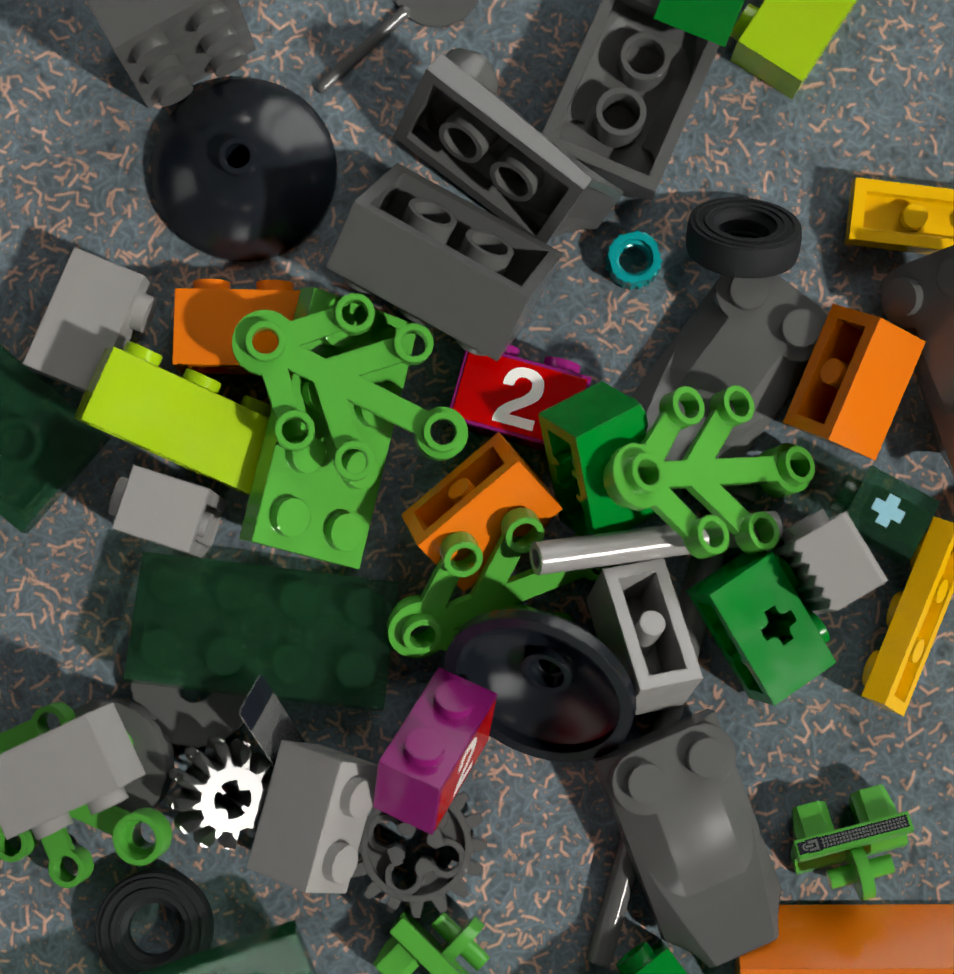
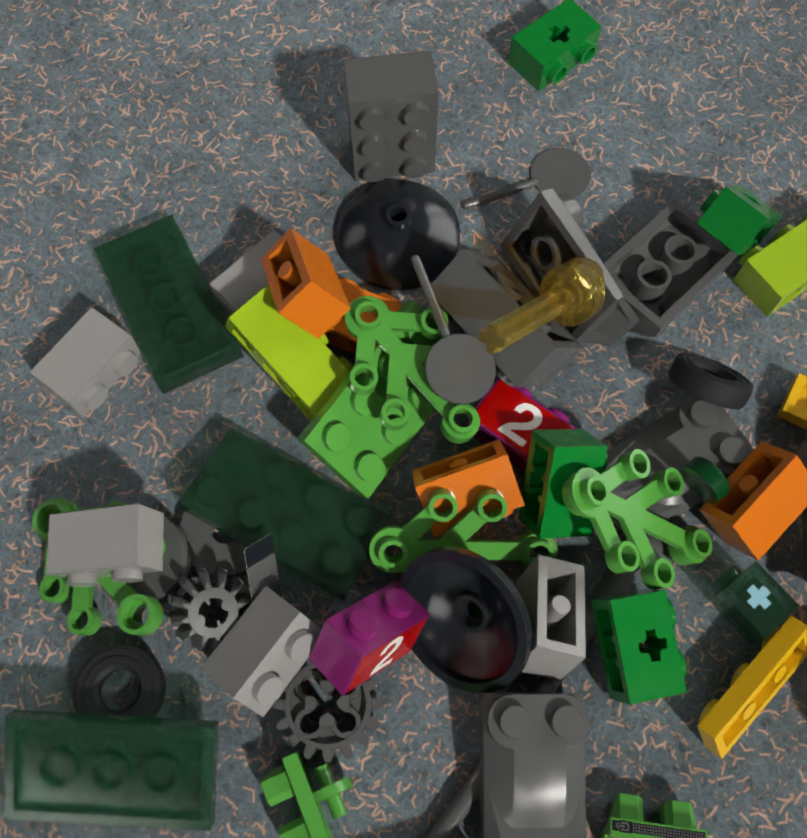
camera: 20 degrees right, 15 degrees down
(160, 328) = (304, 284): none -> orange brick
(167, 511) = (258, 405): light grey brick -> none
(411, 363) = (458, 363): none -> dark grey piece
(518, 211) = (567, 296): none -> clear yellow piece
(615, 548) = (556, 545): light grey piece -> none
(633, 280) = (628, 386): teal axle -> none
(778, 386) = (706, 479): none -> dark green tile
(829, 561) = (707, 614): light grey brick -> none

